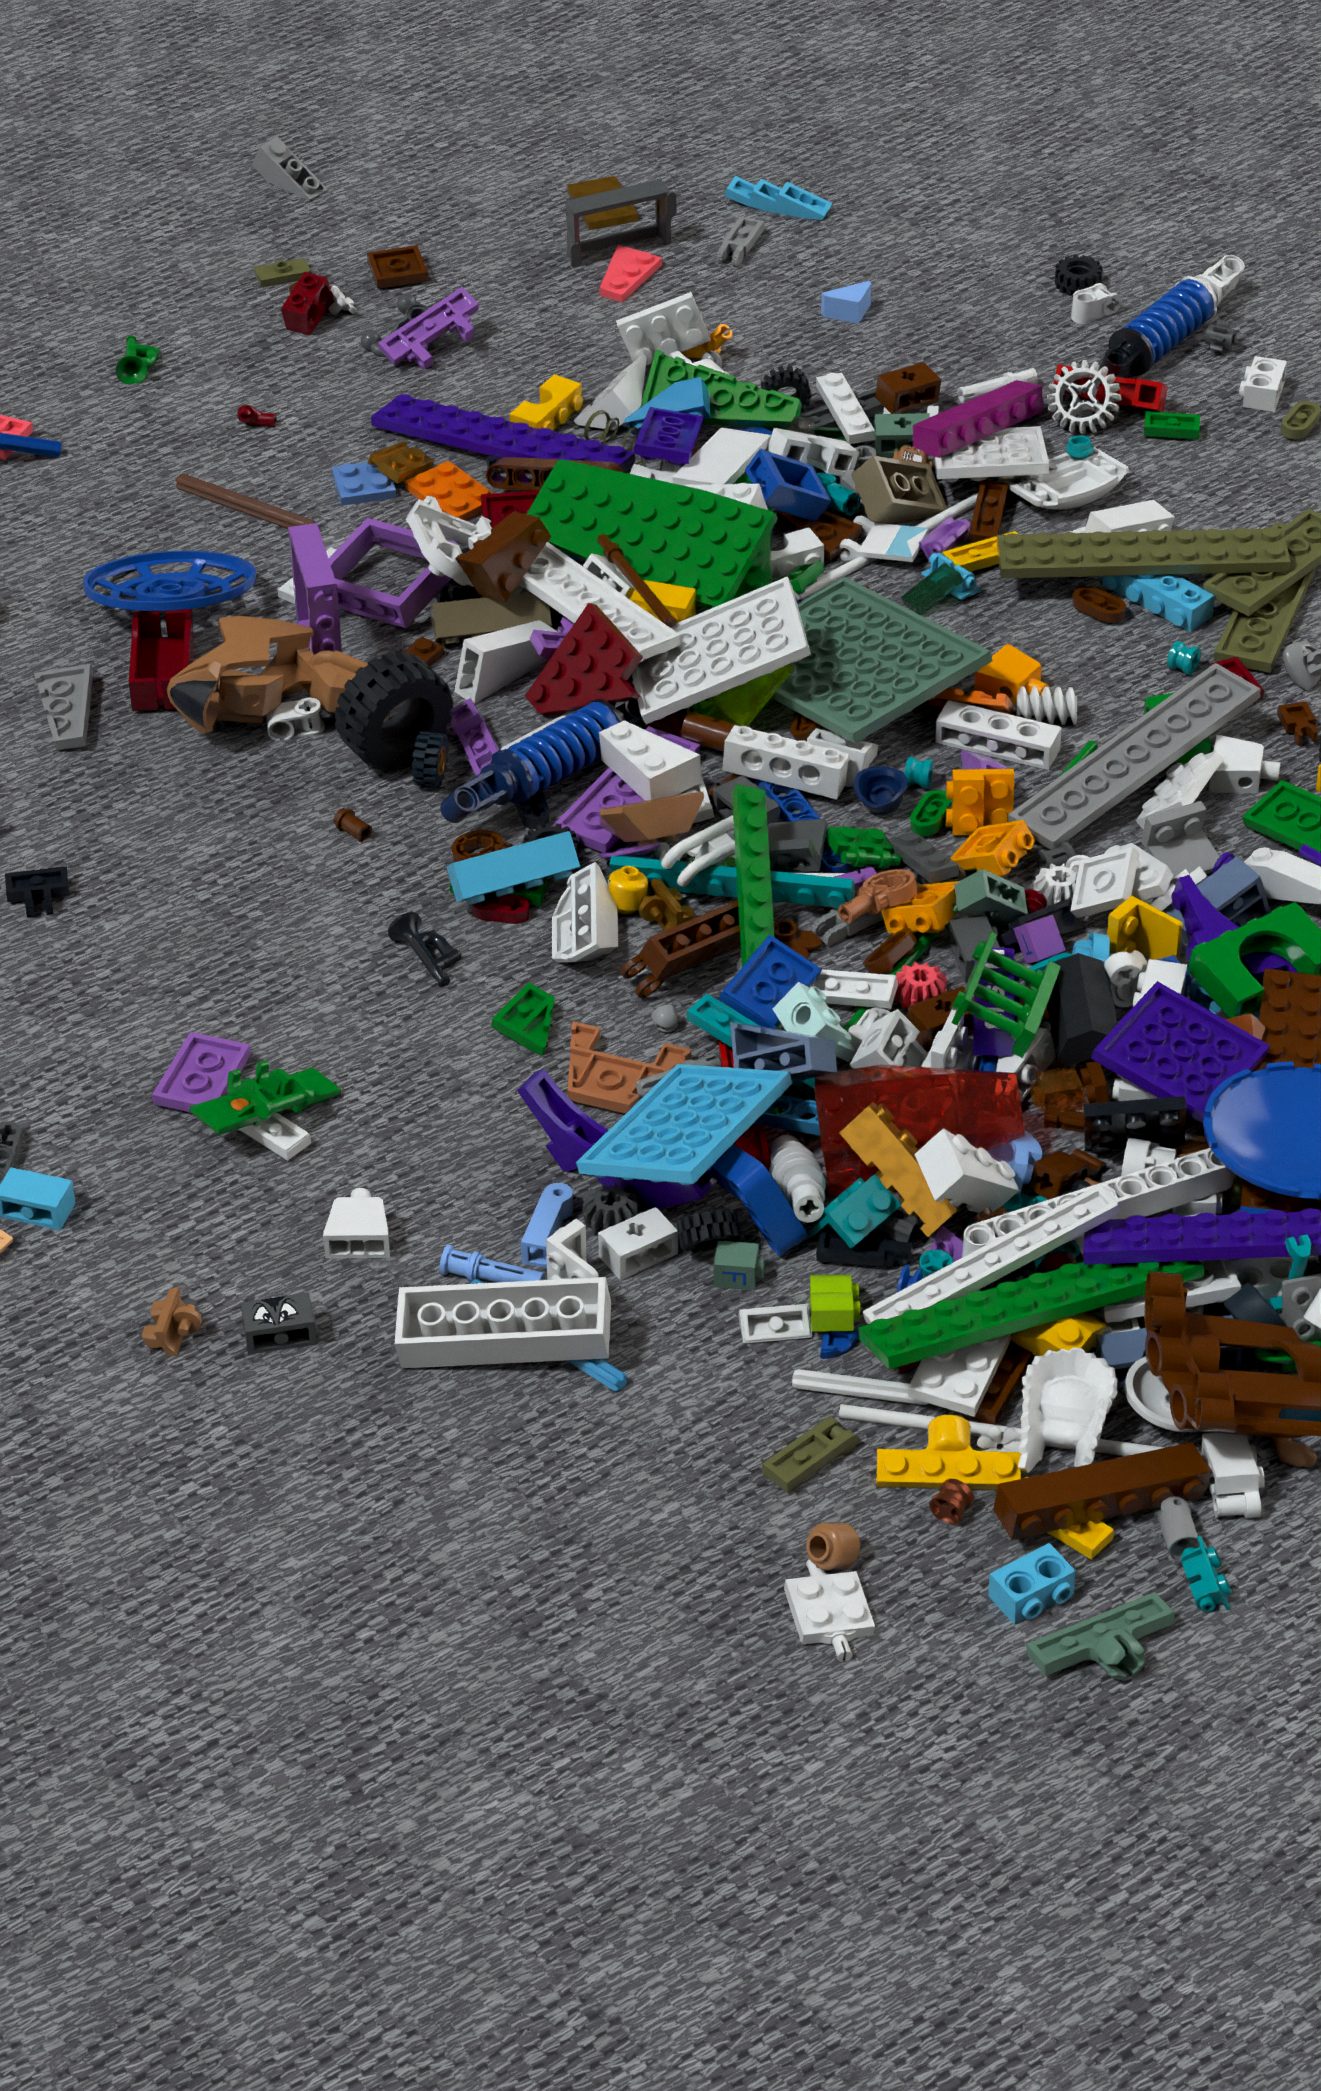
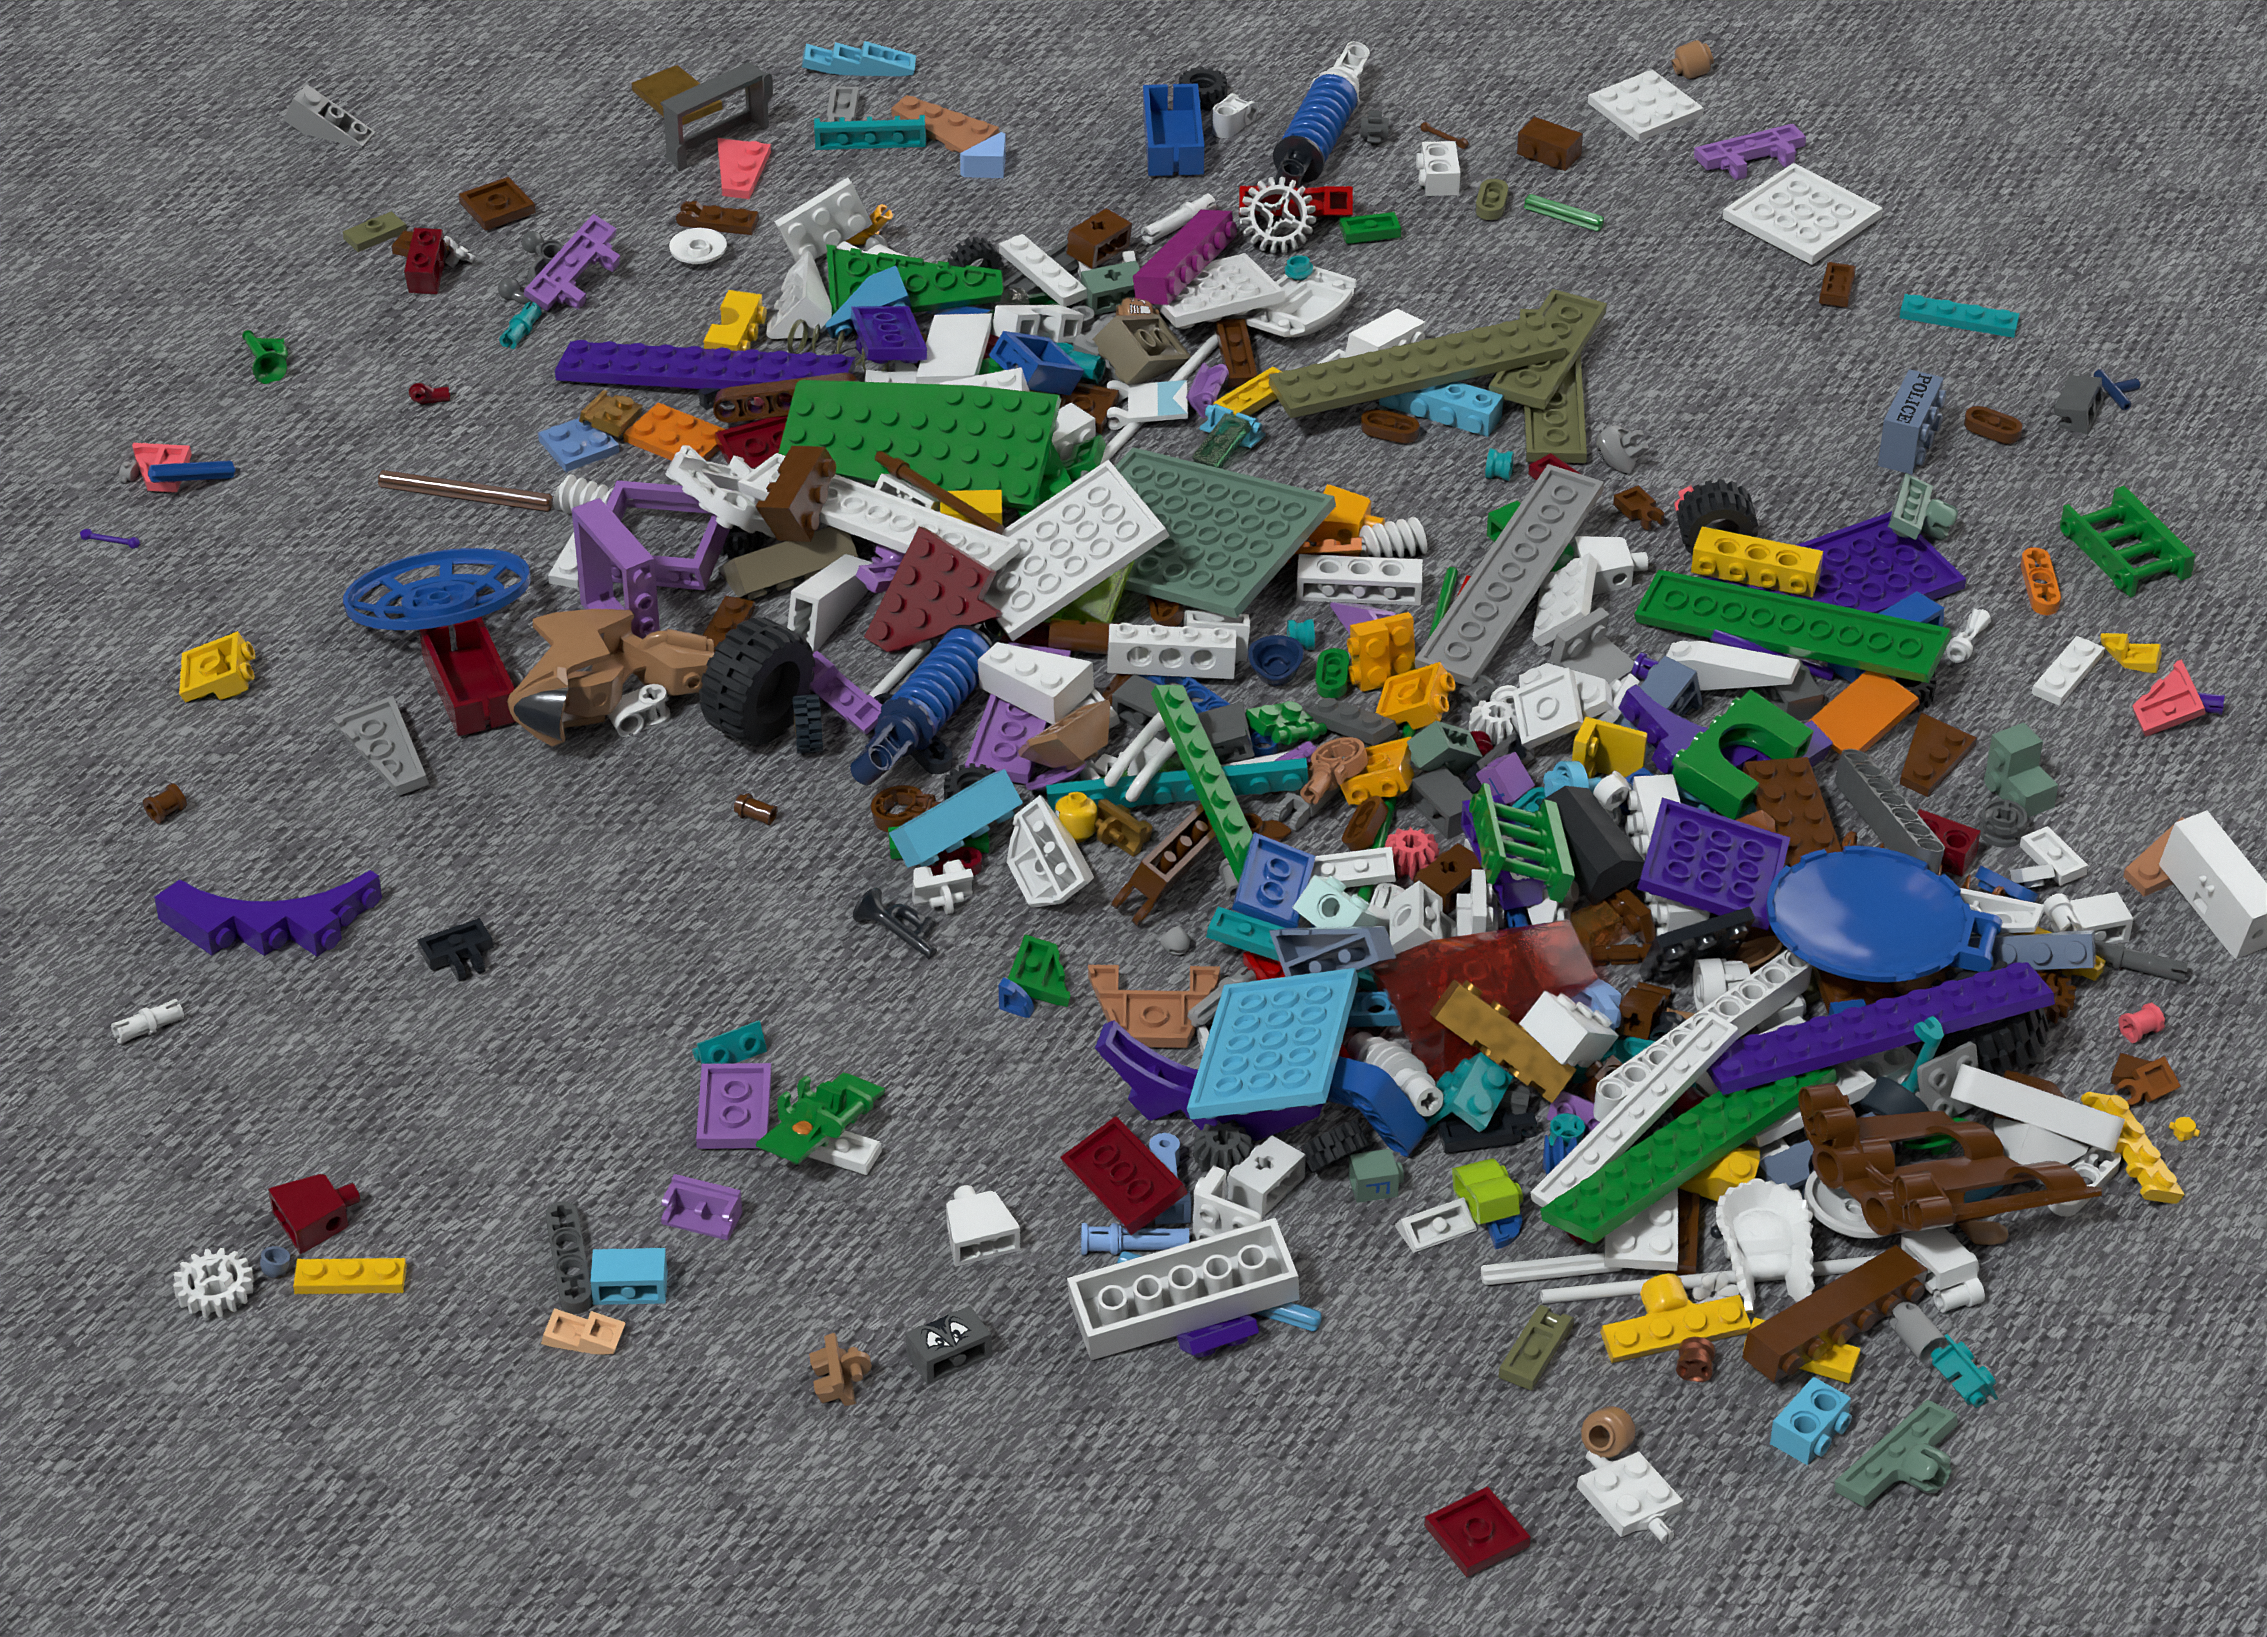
camera: 20 degrees left, 0 degrees up
(128, 1154) = (701, 1207): none -> medium lavender hinge
(226, 1022) = (732, 1046): none -> teal hinge
(336, 526) = (577, 492): none -> white piece
(364, 373) = (520, 325): none -> teal pin
(479, 927) = (942, 889): none -> white hips
(493, 1037) = (1014, 999): none -> blue tile
(504, 1212) = (1123, 1175): none -> dark red plate
(507, 1374) = (1205, 1340): none -> dark purple plate
(551, 333) = (698, 245): none -> white dish
(583, 313) = (717, 218): none -> reddish brown hinge
(668, 1605) = (1477, 1531): none -> dark red plate
(754, 263) = (870, 133): none -> teal hinge
(825, 266) = (949, 127): none -> nougat wing
(1024, 312) = (1173, 136): none -> blue piece
(1300, 365) = (1461, 143): none -> reddish brown hinge

